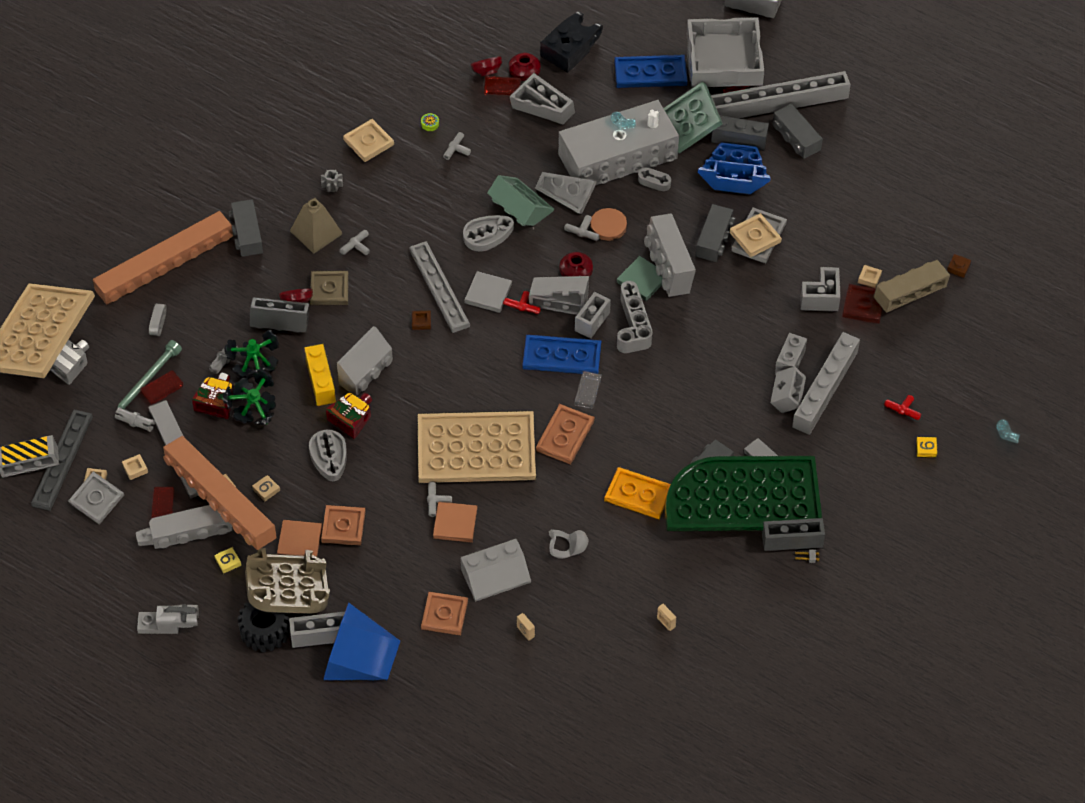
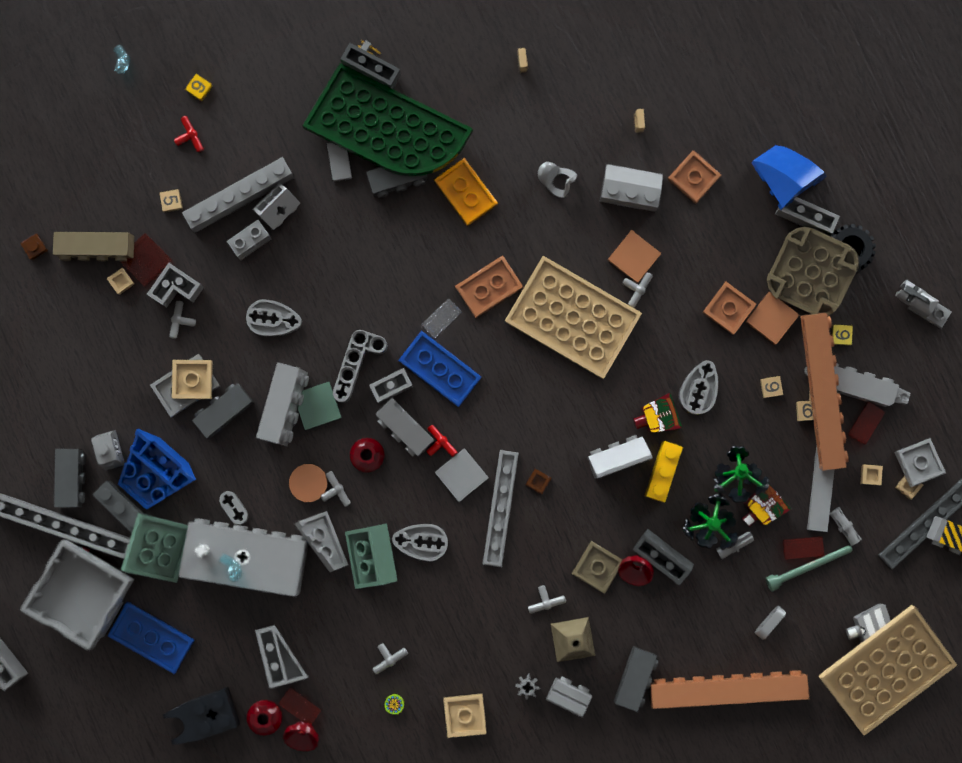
camera: 150 degrees left, 30 degrees up
(293, 190) = (569, 696): none -> light grey brick
(721, 324) = (272, 307): none -> light grey piece
(783, 161) = (108, 450): none -> light grey torso
(801, 276) = (177, 319): none -> light grey piece
(878, 354) = (171, 200): none -> tan tile

